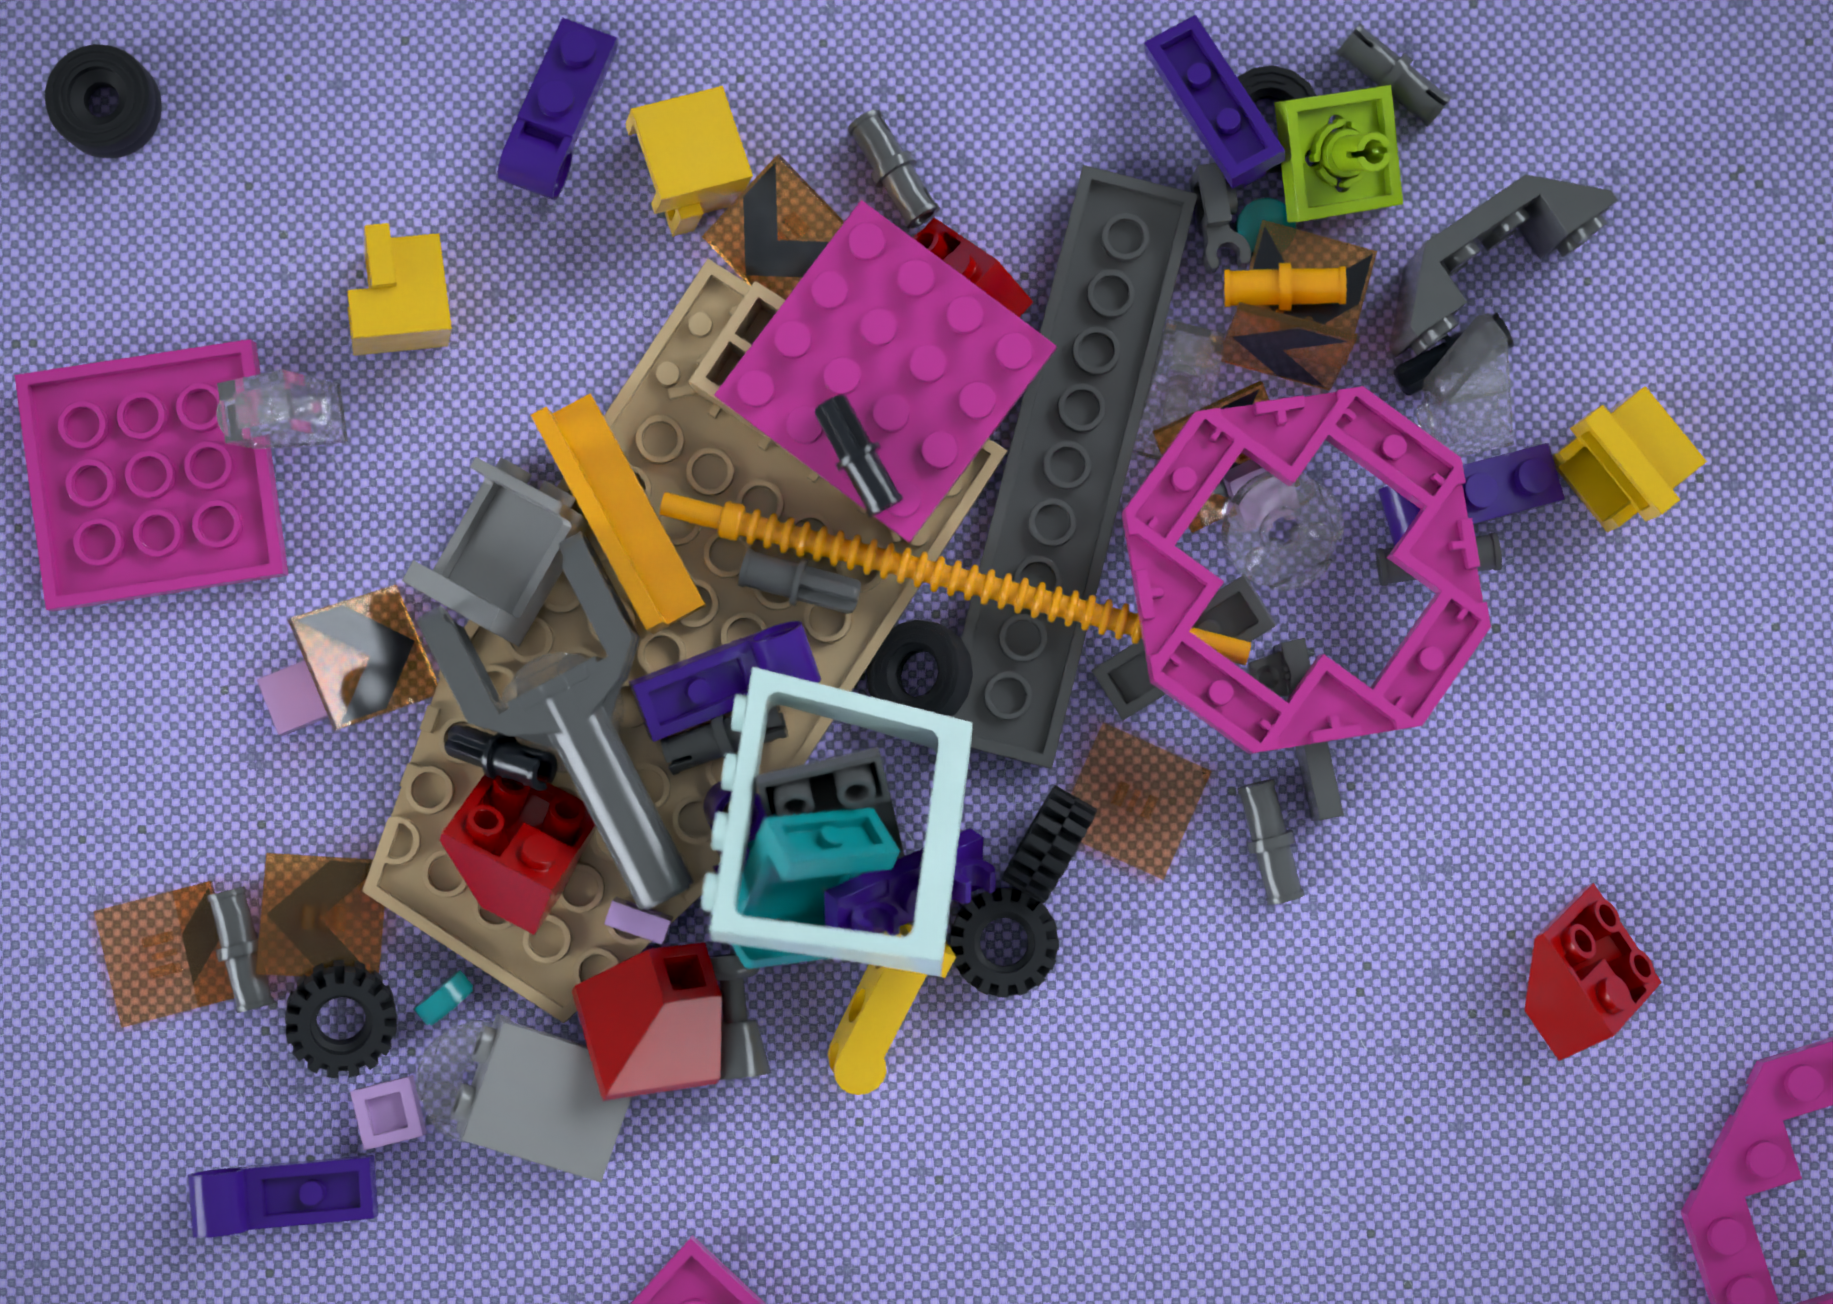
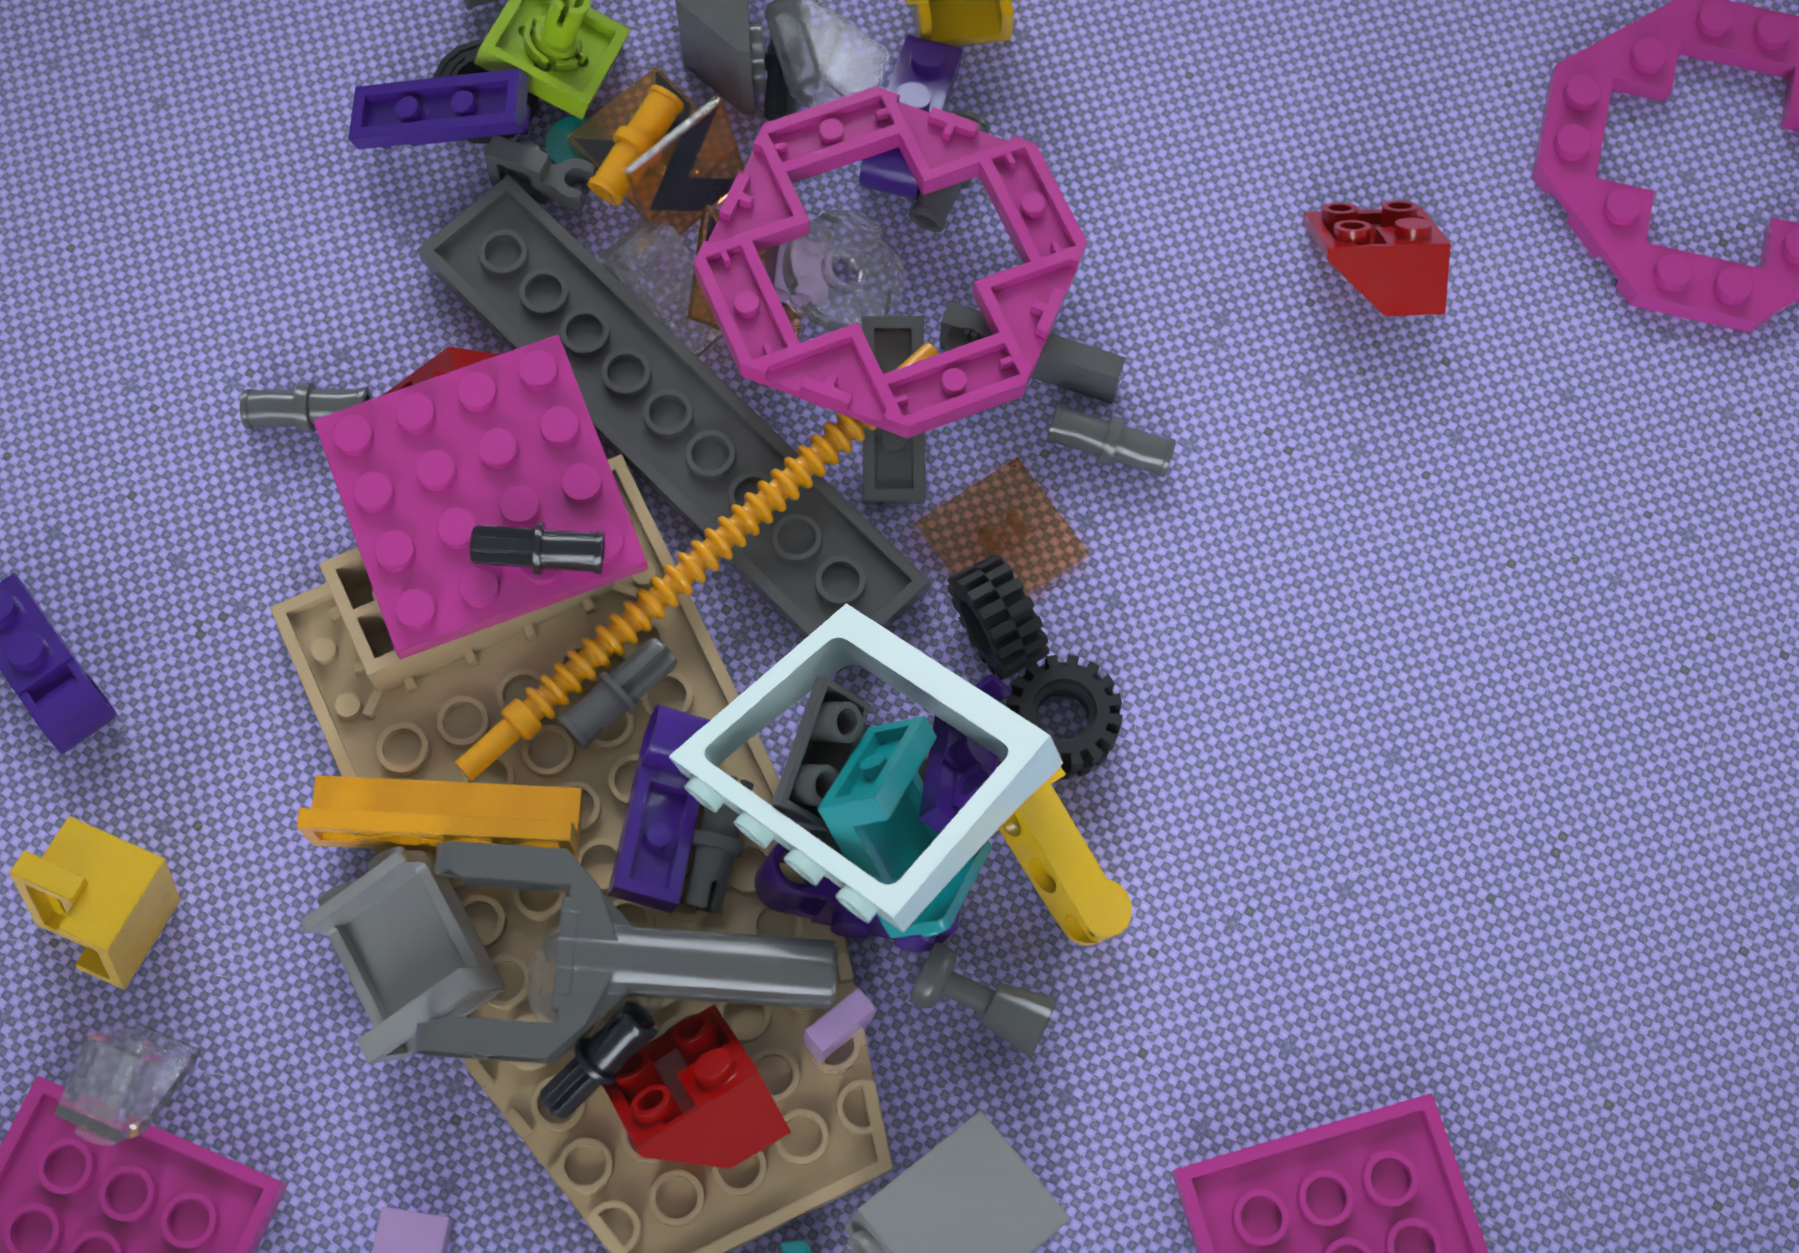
camera: 60 degrees left, 15 degrees down
(364, 657) = (416, 1150): clear orange piece -> none
(653, 1022) = (944, 1069): red slope -> none
(691, 155) = (167, 561): yellow plate -> none
(774, 229) = (284, 529): piece -> none
(952, 663) = (742, 617): black tyre -> none

